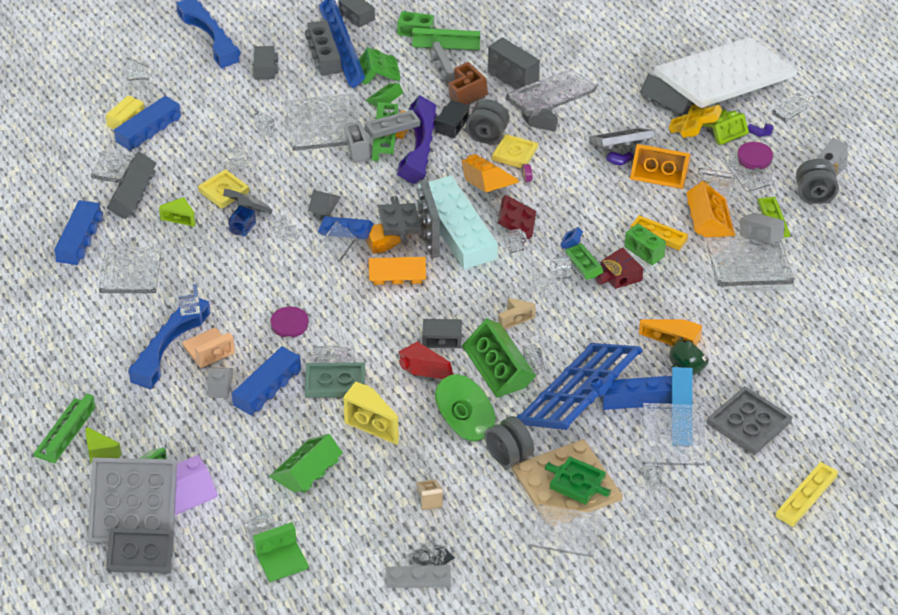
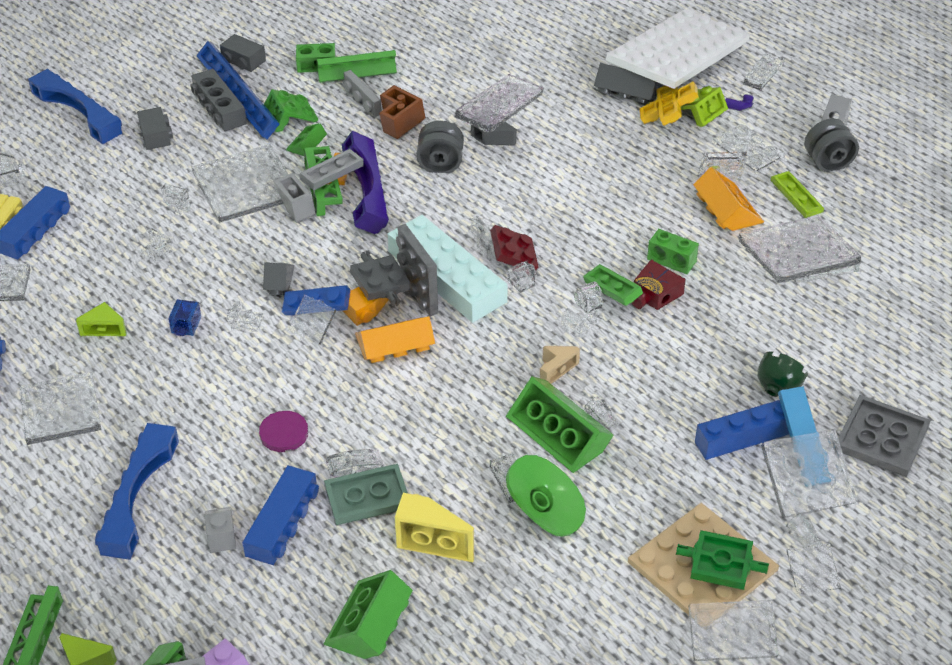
camera: 15 degrees left, 0 degrees up
(131, 186) = (33, 301): dark grey brick -> none
(190, 303) = (154, 434): clear panel -> none
(209, 347) = (192, 485): light nougat bracket -> none
(214, 188) = (149, 283): light yellow plate -> none
(247, 201) = (185, 292): dark grey slope -> none
(424, 362) = (473, 447): red slope -> none
(430, 494) = (544, 619): tan slope -> none
(442, 333) = (478, 406): dark grey brick -> none
(452, 119) = (395, 152): black brick -> none
(485, 174) = (461, 205): light orange slope -> none
(509, 442) = (618, 528): dark grey wheel -> none
(512, 64) = (444, 80): dark grey brick -> none
(514, 151) = (480, 175): light yellow plate -> none
(527, 172) = (504, 196): magenta tile -> none
(571, 238) = (585, 261): blue plate -> none
(595, 386) = (690, 434): blue door -> none
(619, 159) = (600, 162): dark purple arm -> none
(623, 137) = (602, 135): flat silver plate -> none
(660, 166) = (651, 160): light orange slope -> none
(670, 330) = (746, 346): light orange slope -> none
(673, 237) = (702, 236): yellow plate -> none
(755, 155) = (750, 130): magenta tile -> none
(762, 228) = (795, 207): light grey brick -> none

